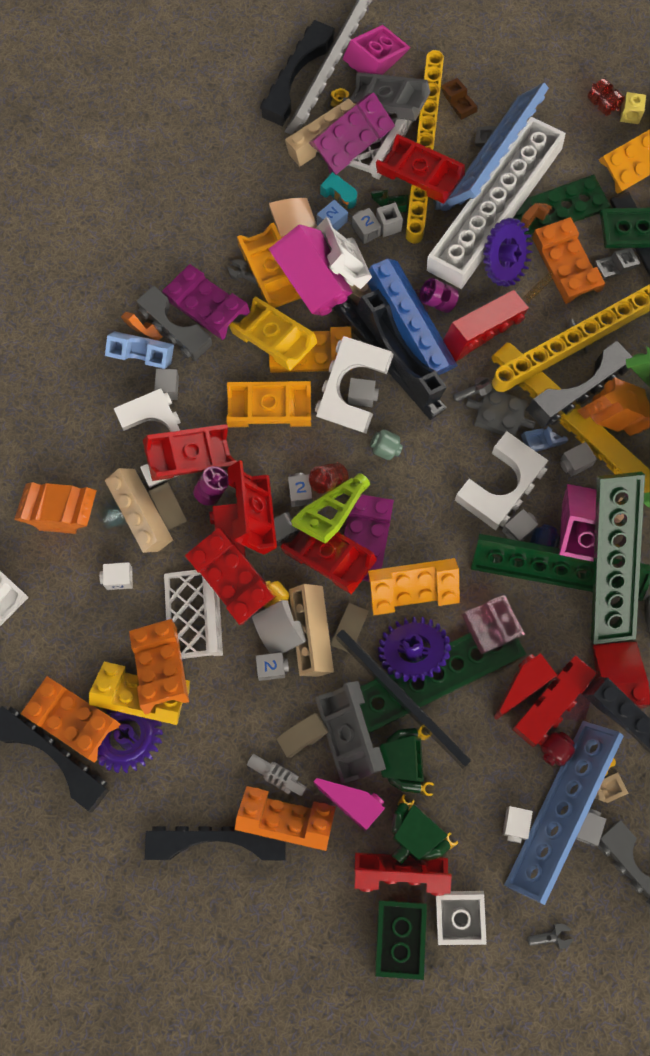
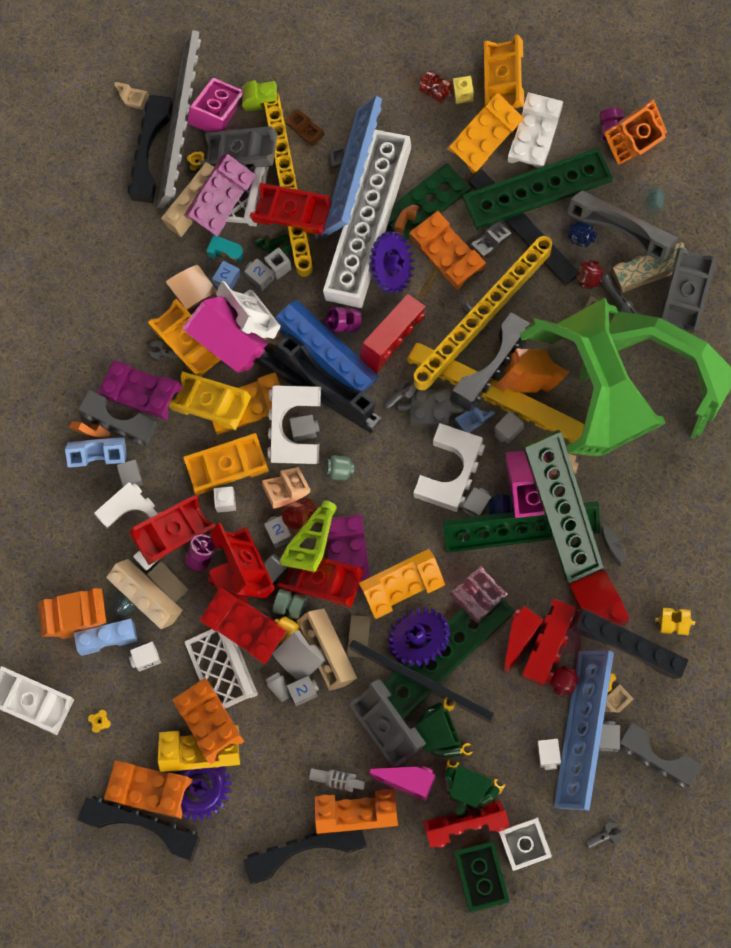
camera: 10 degrees left, 0 degrees up
(50, 633) = (105, 723): none -> yellow plate
(70, 540) = (116, 633): none -> light blue arch
(247, 654) = (278, 687): none -> light grey cone
(255, 439) = (224, 499): none -> white brick
(286, 569) = (288, 604): none -> sand green wheel
(296, 20) = (132, 97): none -> tan slope
(302, 734) = (347, 738): dark tan slope -> none
(323, 448) = (287, 488): none -> light nougat slope
(422, 49) = (256, 94): none -> lime brick

